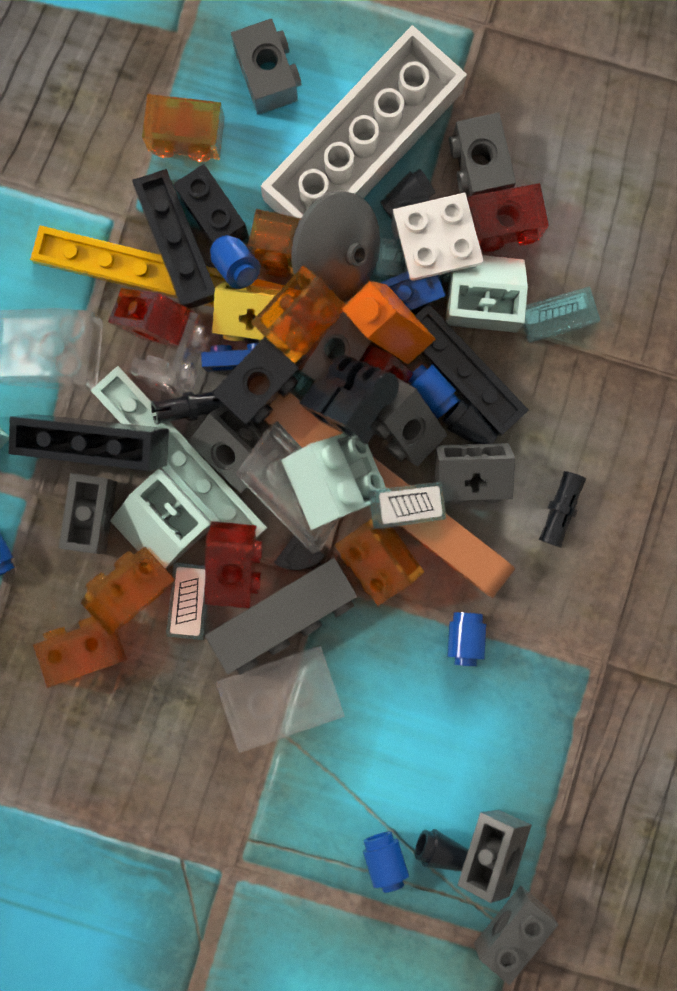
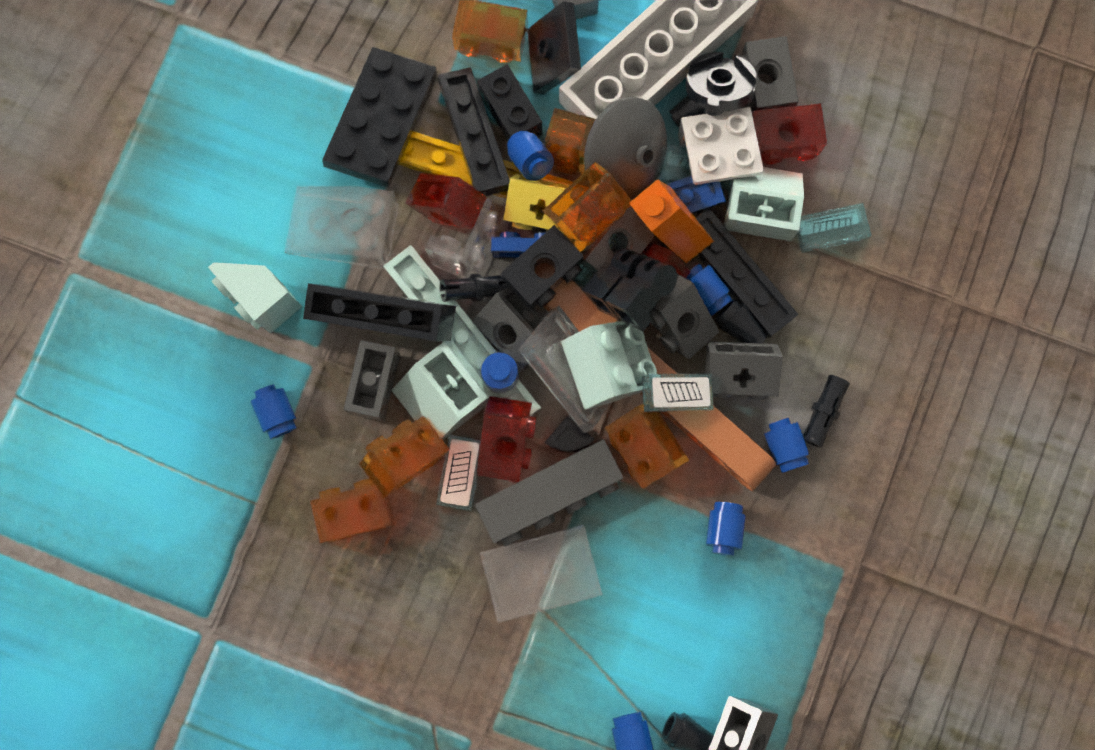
camera: 10 degrees right, 5 degrees down
(73, 230) = (379, 117): none -> black plate
(219, 497) = (500, 372): none -> blue brick
(253, 142) = (554, 48): none -> black plate
(430, 184) = (715, 98): none -> black plate
(525, 548) = (787, 445): none -> blue brick

